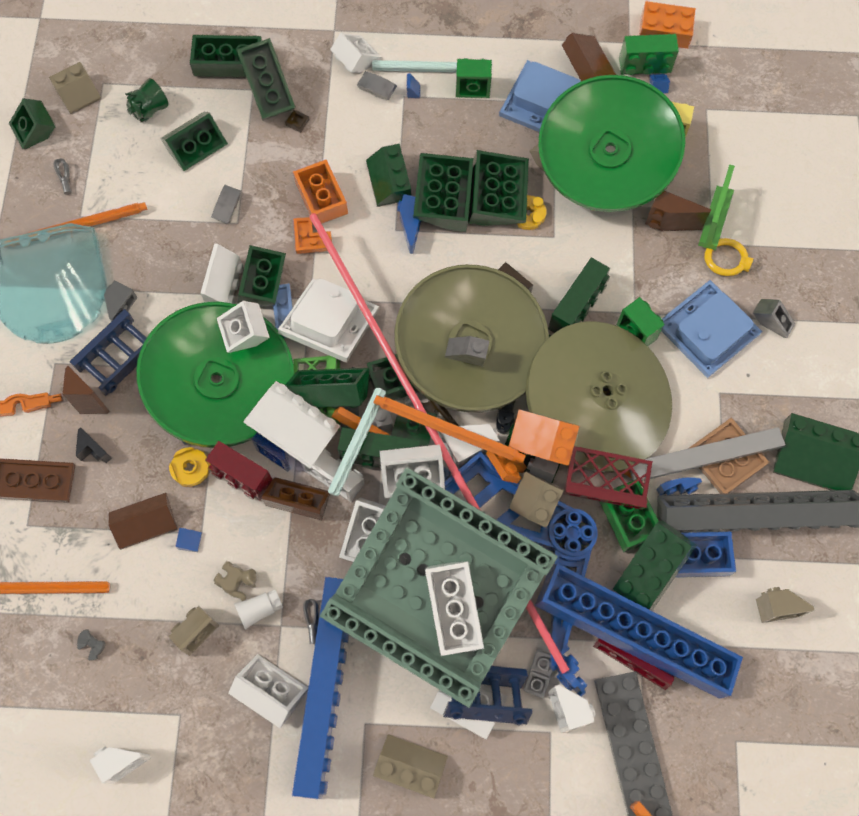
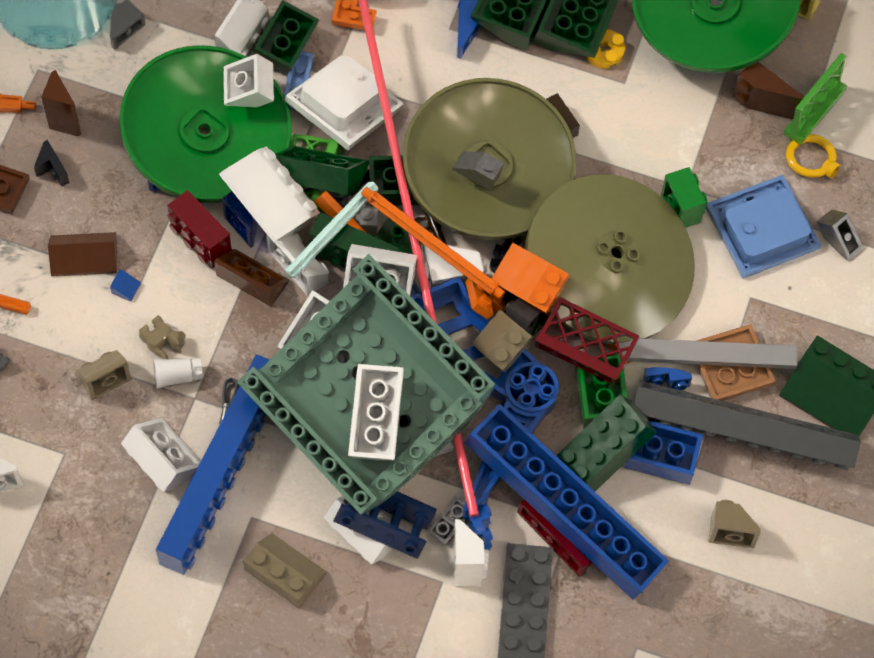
camera: 15 degrees right, 5 degrees down
(97, 347) = (96, 58): dark blue fence -> none
(179, 463) = (153, 223): yellow plate -> none
(580, 296) = (629, 148): dark green brick -> none

